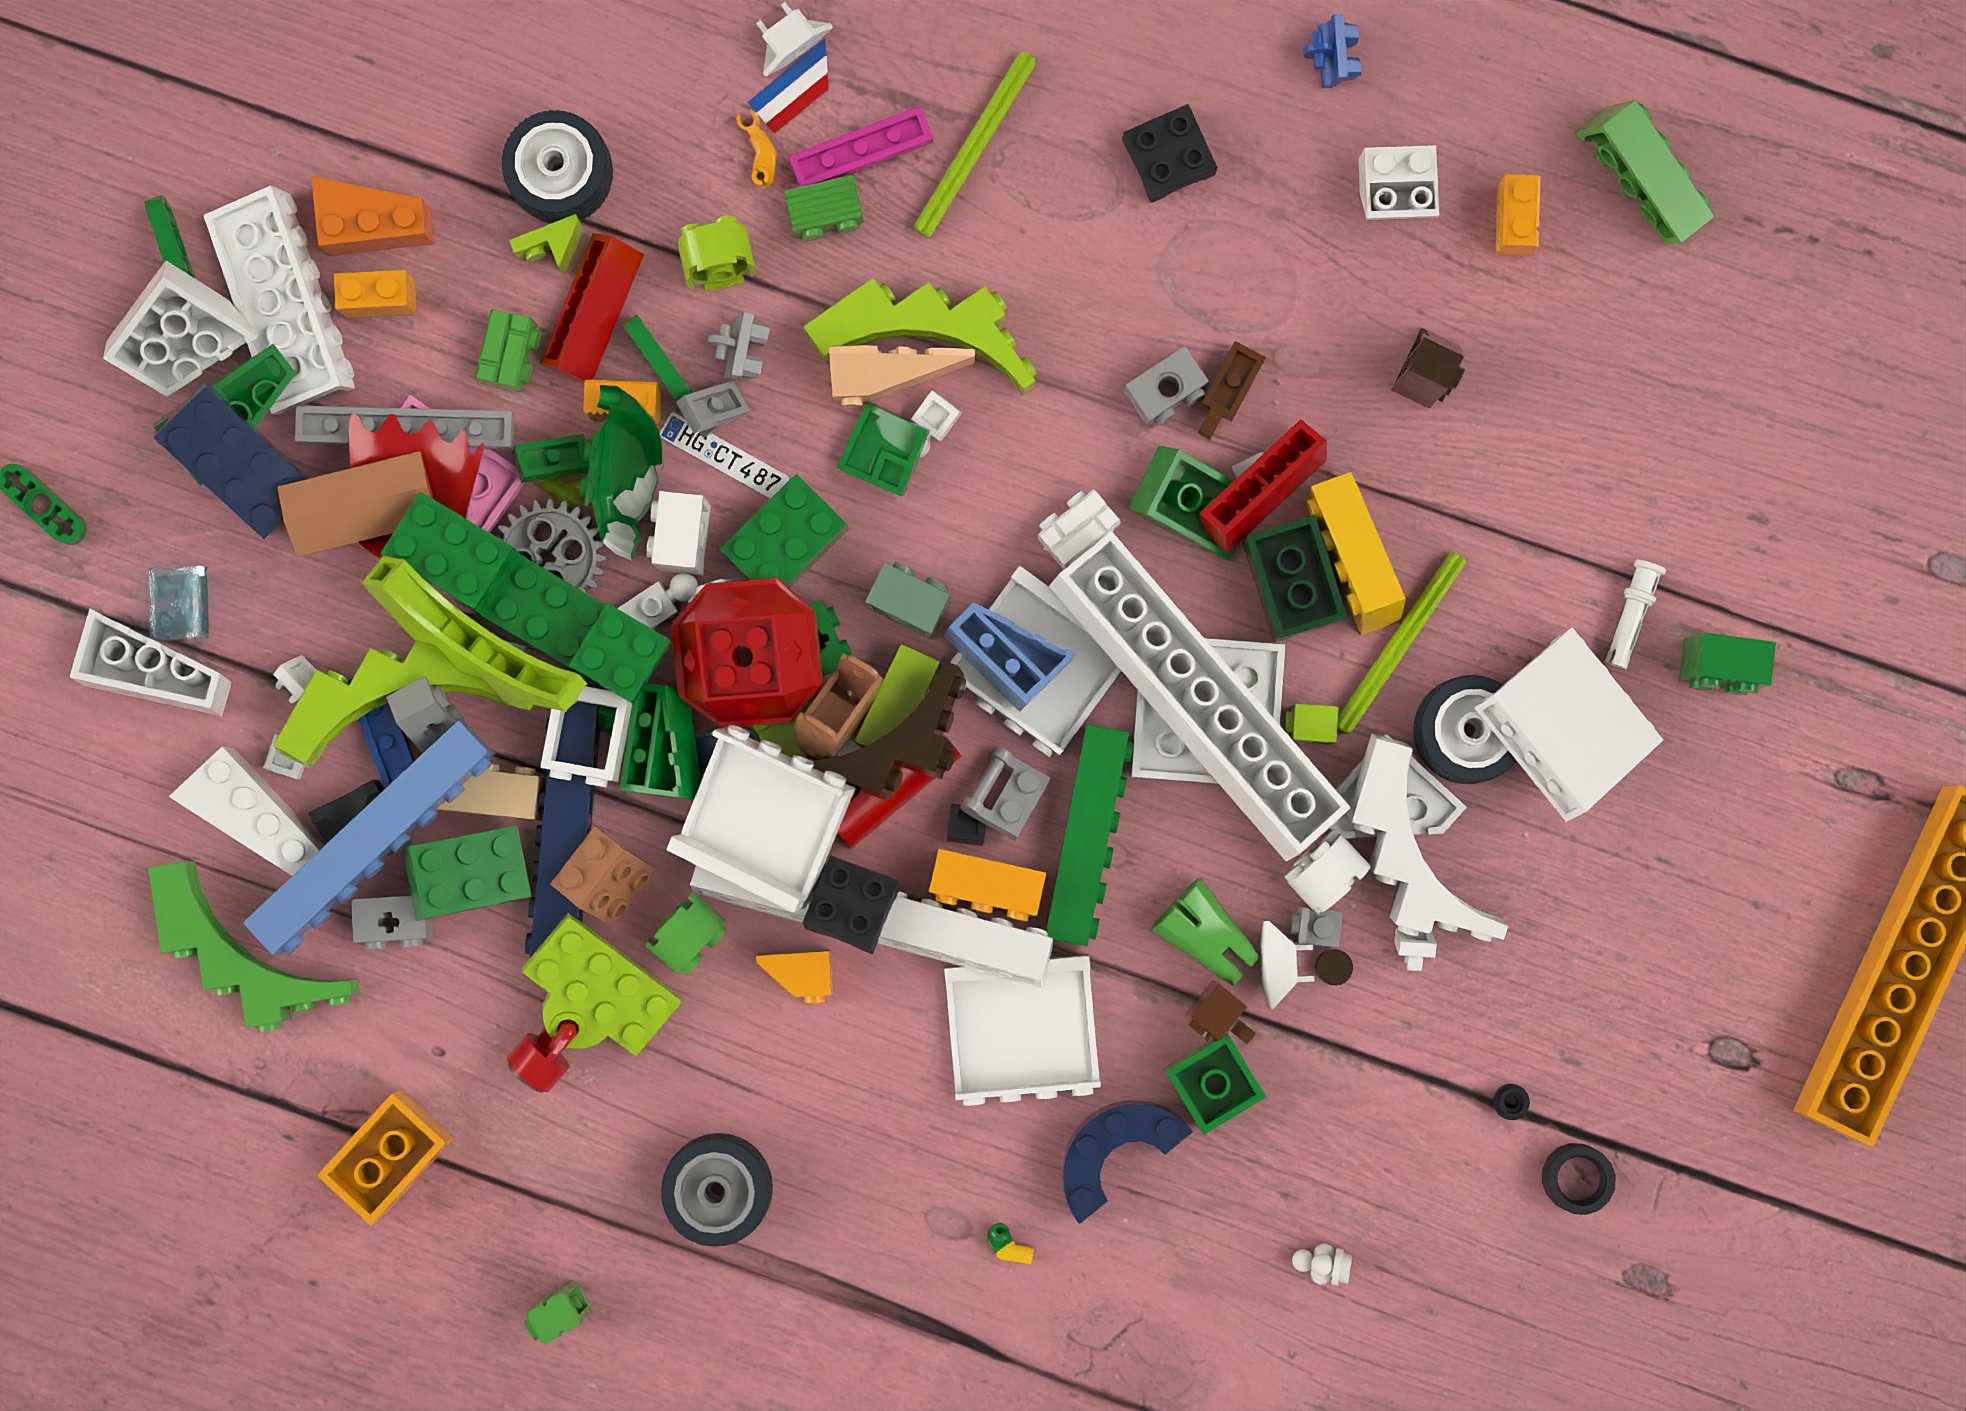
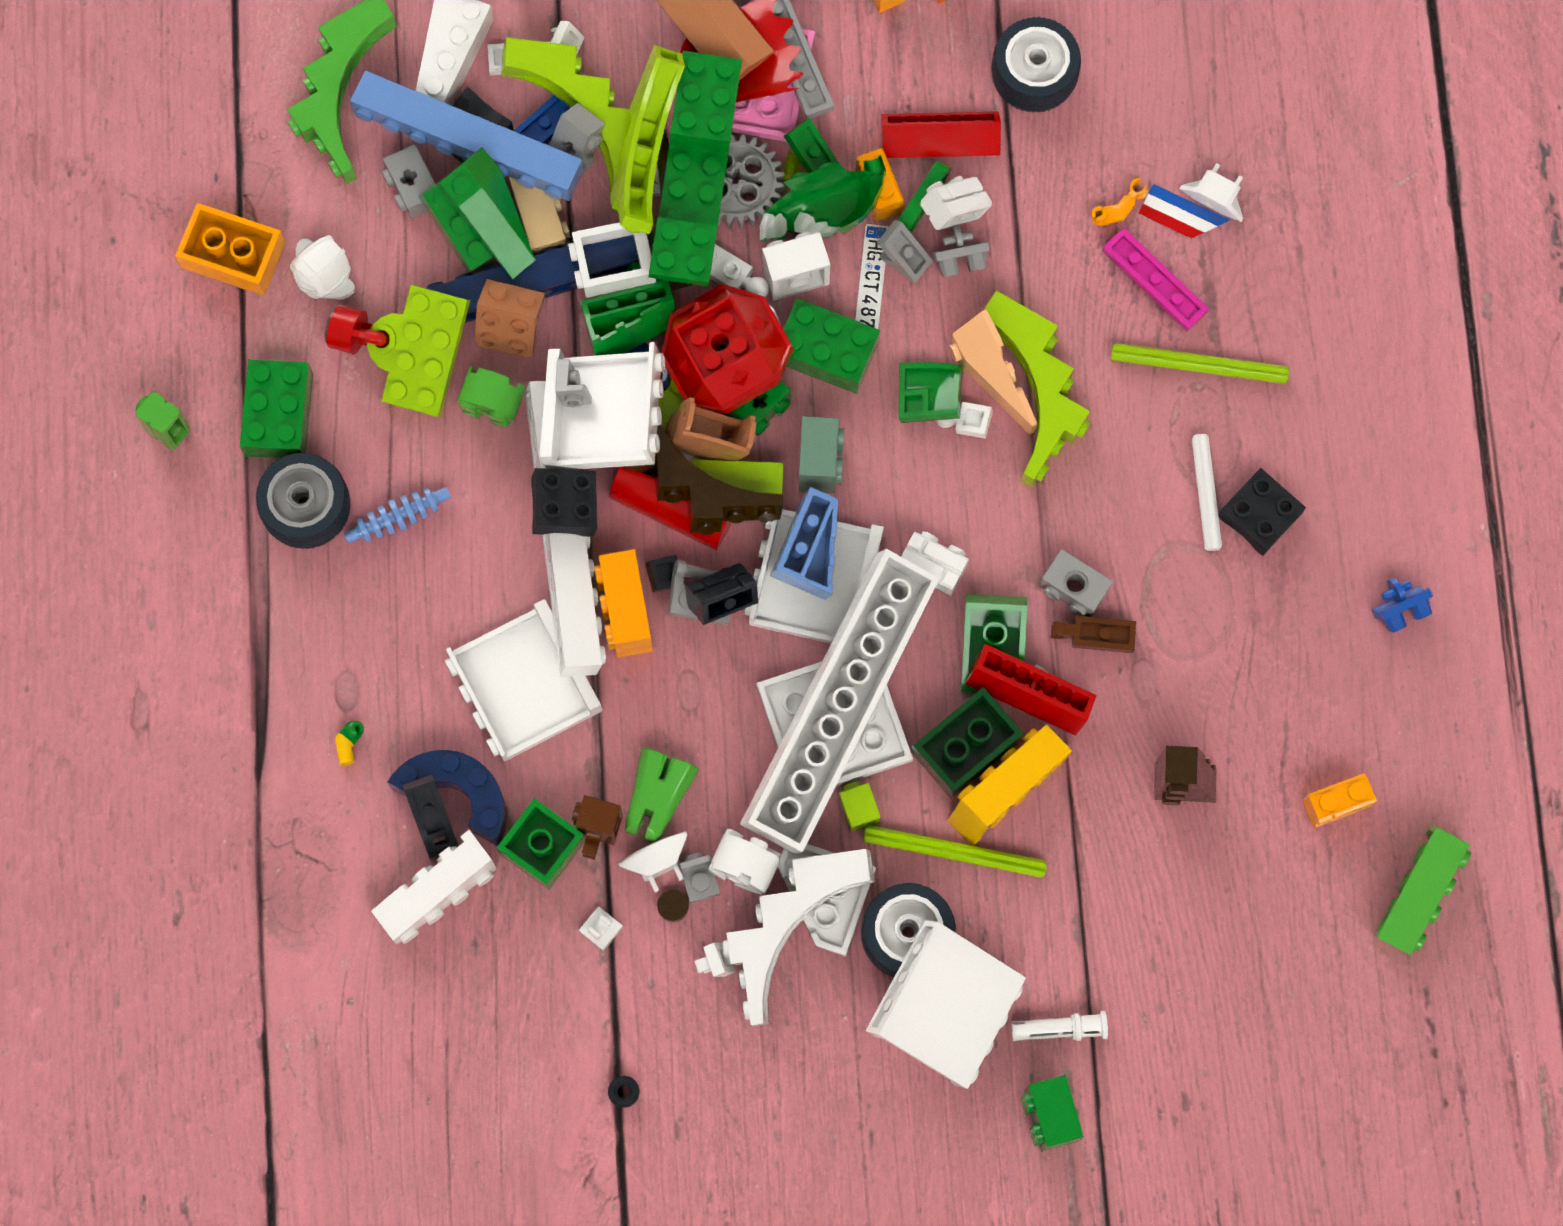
camera: 65 degrees right, 10 degrees down
(453, 1062) = (322, 269): none -> white piece
(468, 850) = (485, 204): none -> green wedge
(507, 351) = (879, 87): bright green brick -> none
(558, 236) = (982, 87): lime slope -> none
(596, 1177) = (276, 408): none -> green brick
(681, 326) = (955, 202): none -> white brick
(714, 845) = (568, 386): none -> light grey bracket
(716, 254) = (1022, 204): lime brick -> none
(775, 1090) = (397, 515): none -> medium blue piece
(801, 973) = (496, 497): light orange slope -> none
(824, 208) = (1096, 271): bright green brick -> none
(1024, 774) = (721, 593): none -> black brick
(1087, 835) = (695, 668): green brick -> none
(1121, 202) = (1206, 492): none -> white axle
(1136, 1191) = (430, 815): none -> black plate
(1214, 1217) = (435, 889): none -> white wedge
(1324, 1264) = (433, 995): white piece -> none
(1326, 1054) = (600, 928): none -> white tile
(1399, 182) = (1320, 695): white slope -> none
(1606, 1182) = (607, 1173): black tyre -> none

